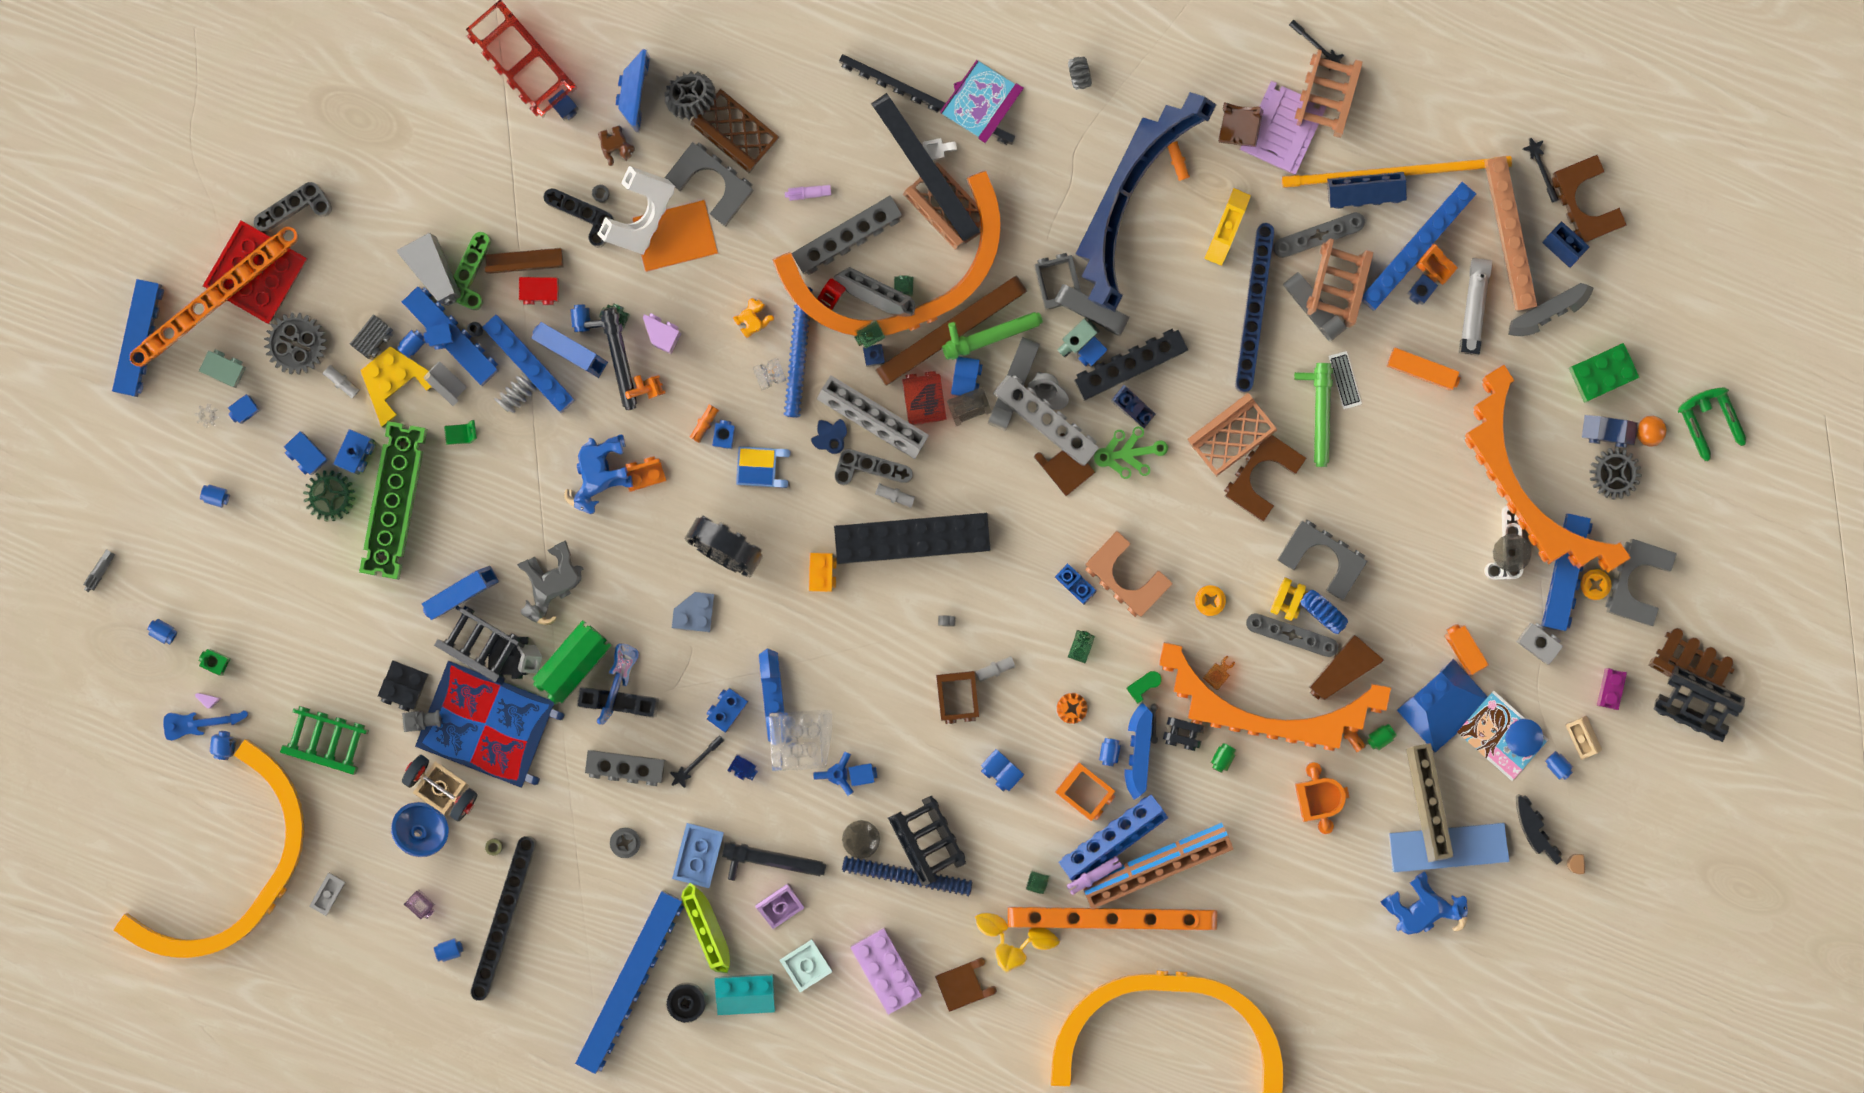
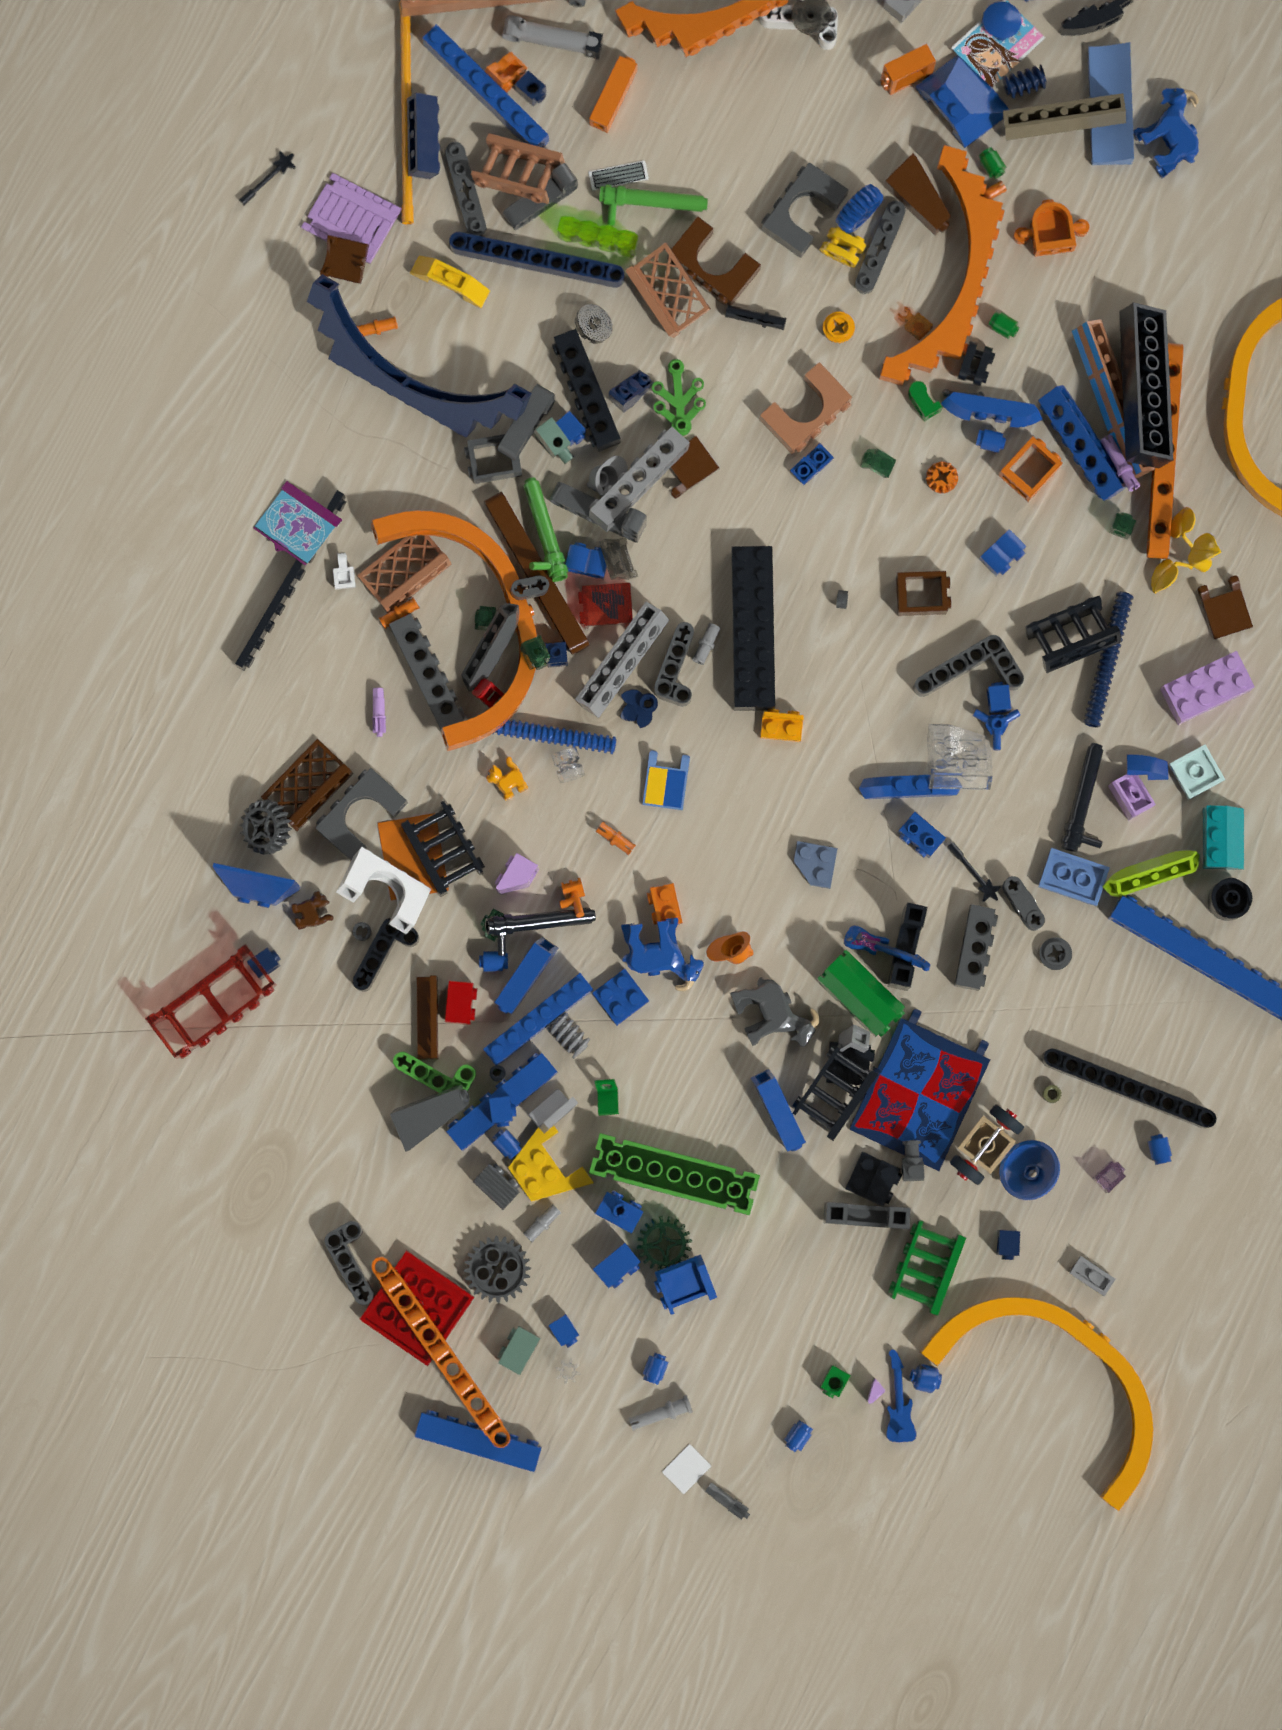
camera: 90 degrees left, 5 degrees down
(126, 531) = (686, 1469): none -> white sticker
(178, 512) = (671, 1410): none -> light grey pin
(293, 516) = (684, 1283): none -> blue panel
(351, 814) = (1008, 1244): none -> dark blue brick
(367, 701) = (866, 1215): none -> dark grey arch
(556, 439) = (620, 997): none -> blue plate
(607, 538) = (733, 948): none -> orange piece
(669, 809) = (1023, 903): none -> dark grey piece
(682, 244) = (431, 866): none -> black fence
(724, 546) = (749, 821): black brick -> none
(727, 443) = (636, 824): blue brick -> none
(743, 768) = (984, 822): clear blue brick -> none
(807, 918) = (1146, 765): none -> blue slope
(861, 839) = (1066, 705): clear smoke dish -> none
(893, 744) = (969, 663): none -> dark grey beam
(903, 204) = (399, 612): none -> orange pin
(926, 168) = (363, 585): black beam -> none
(937, 322) = (529, 583): none -> dark grey beam
(995, 669) = (896, 552): light grey pin -> none
(1080, 73) = (276, 419): dark grey gear -> none
(1169, 895) = (1146, 385): none -> black brick
(1191, 359) = (593, 323): none -> clear smoke plate
(1213, 522) = (763, 319): none -> black pin
(1282, 357) = (592, 235): none -> clear neon green brick
(1341, 106) = (316, 148): nougat fence -> none
(1463, 763) = (1024, 81): none -> dark blue piece

